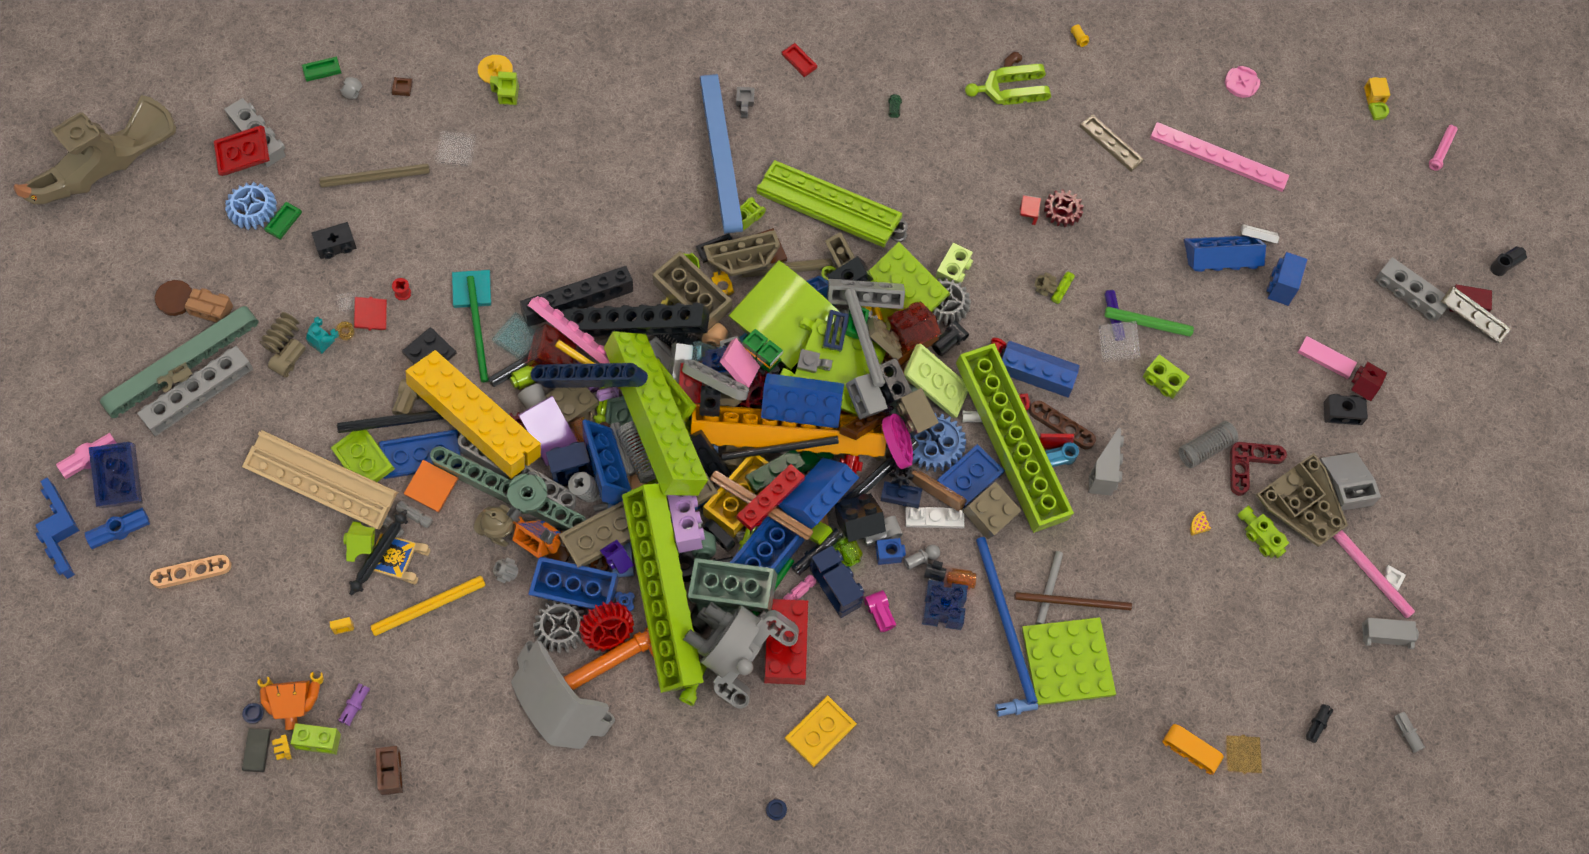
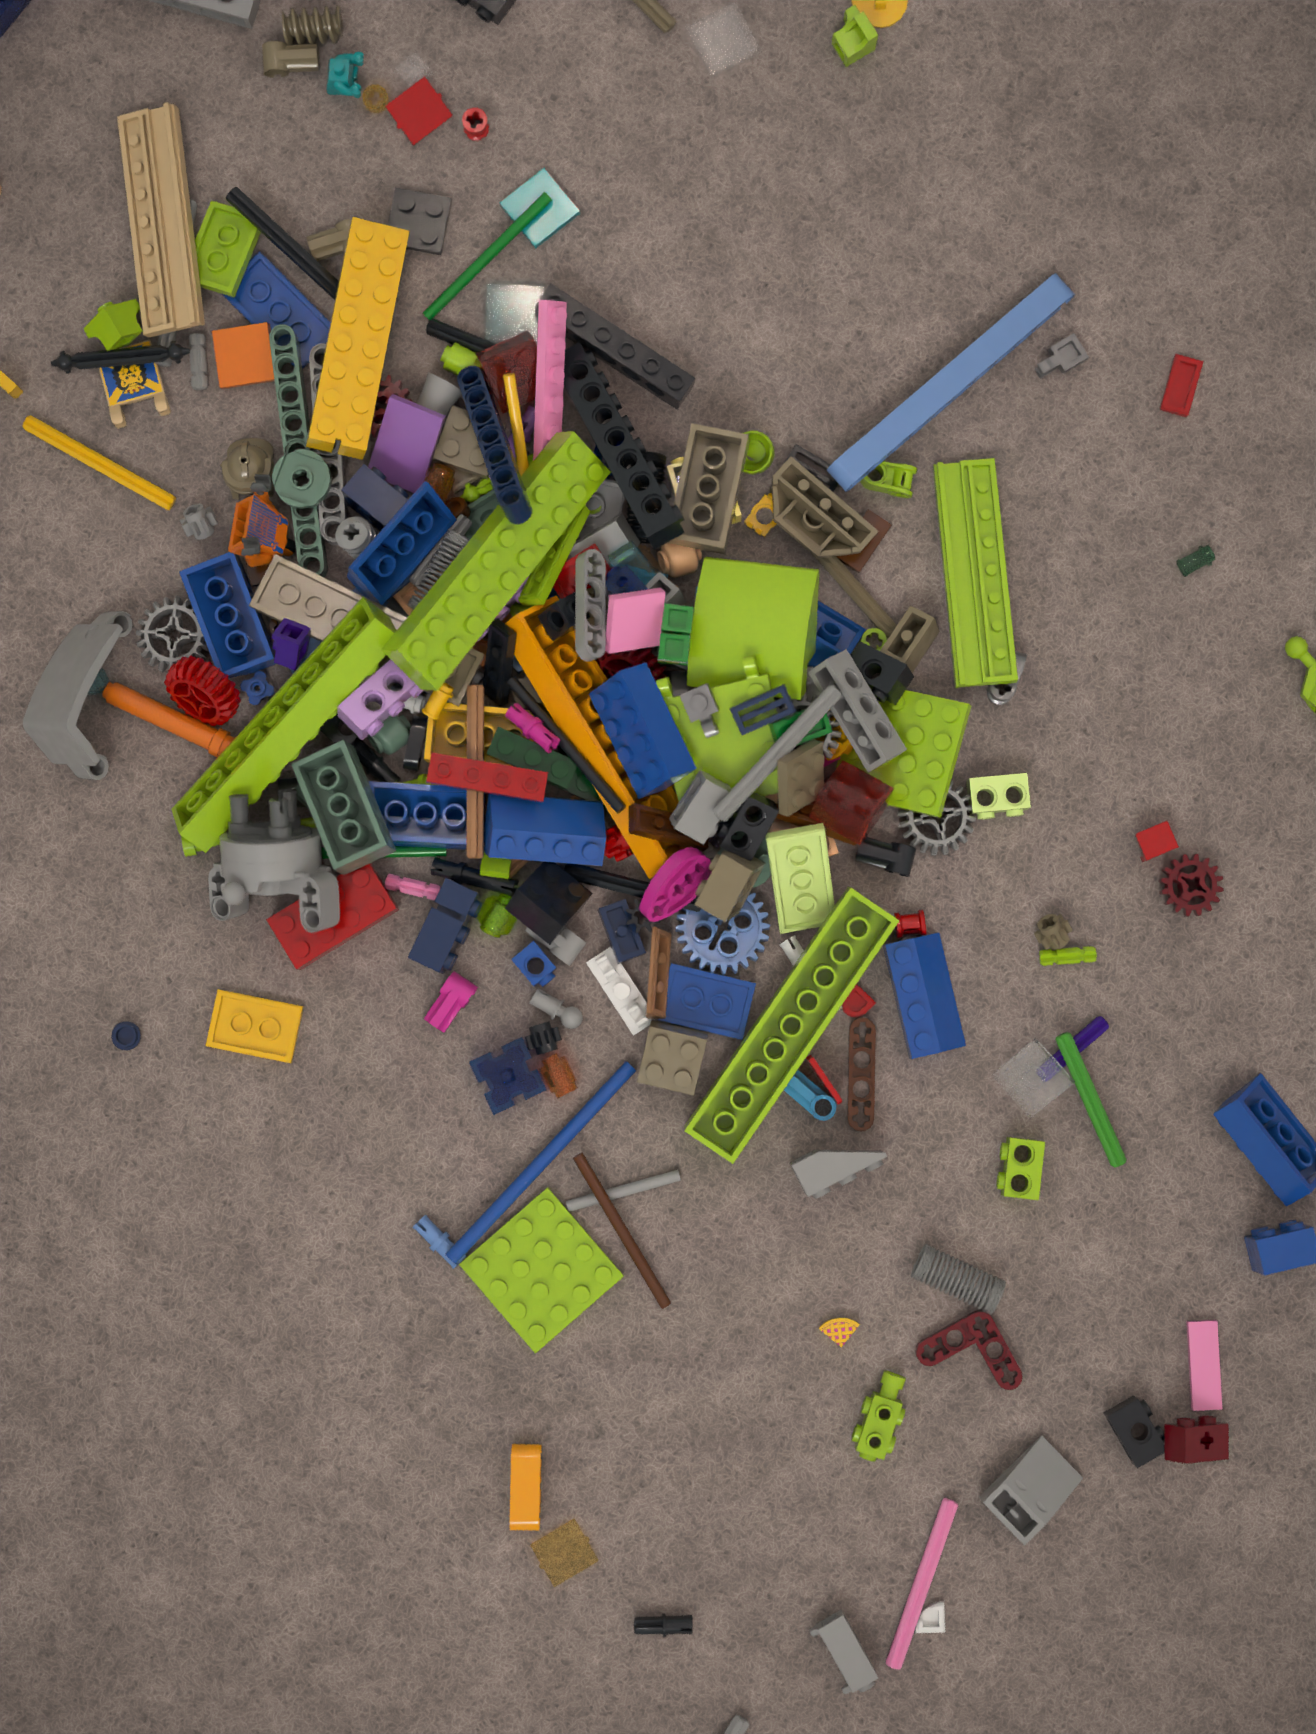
camera: 65 degrees right, 20 degrees up
(707, 498) = (438, 701): none -> yellow pin
(759, 458) = (532, 727): none -> dark pink pin
(1306, 501) = (958, 1448): dark tan wedge -> none

